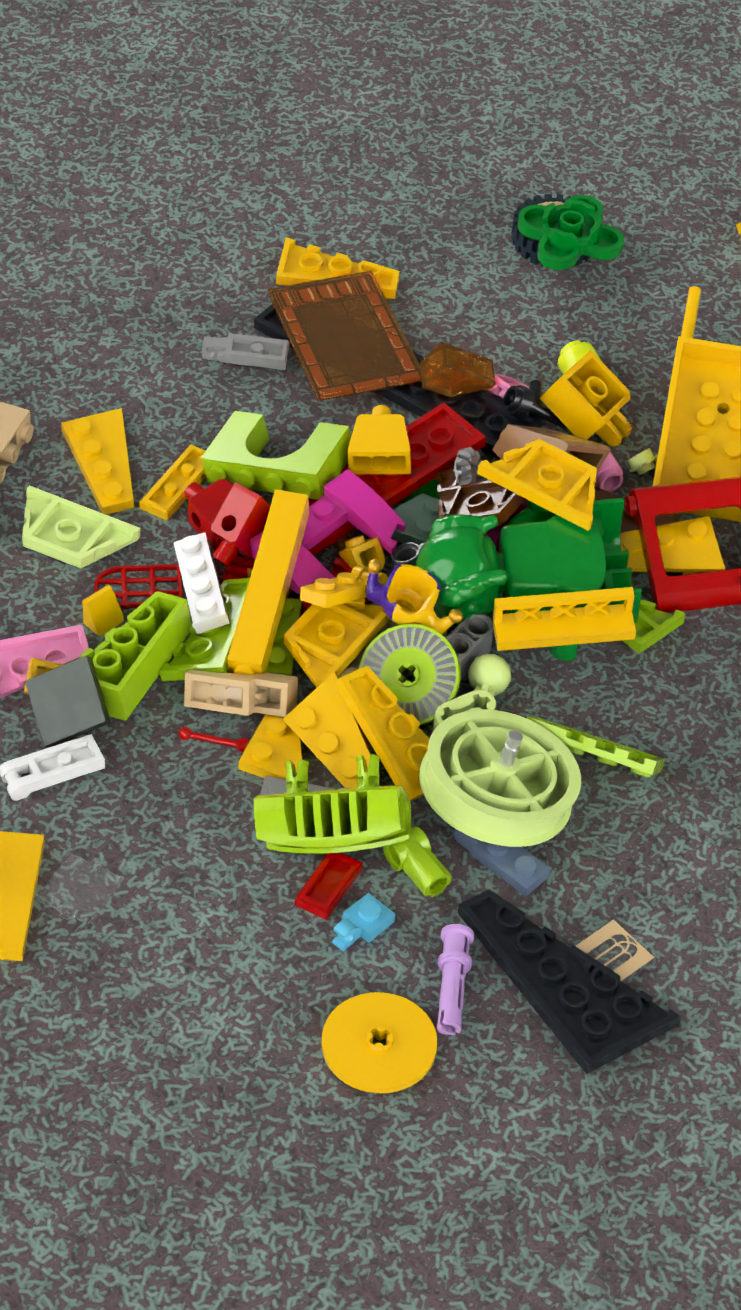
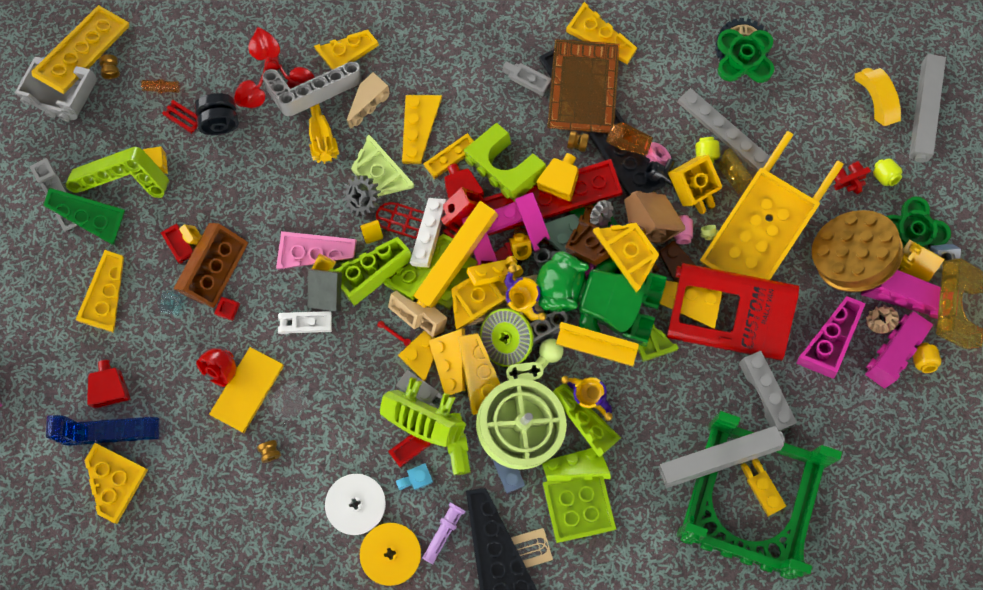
camera: 30 degrees right, 25 degrees up
(47, 563) = (361, 195): none -> dark grey gear
(86, 963) = (269, 451): none -> pearl gold wheel
(277, 1017) = (340, 498): none -> white piece
(367, 401) = (573, 141): none -> pearl gold wheel
(585, 710) = (590, 394): none -> yellow piece
(606, 342) = (723, 129): none -> light grey plate
(607, 818) = (577, 464): none -> lime wing
(640, 370) = (734, 171): none -> clear yellow tile
(654, 868) = (578, 508): none -> lime plate

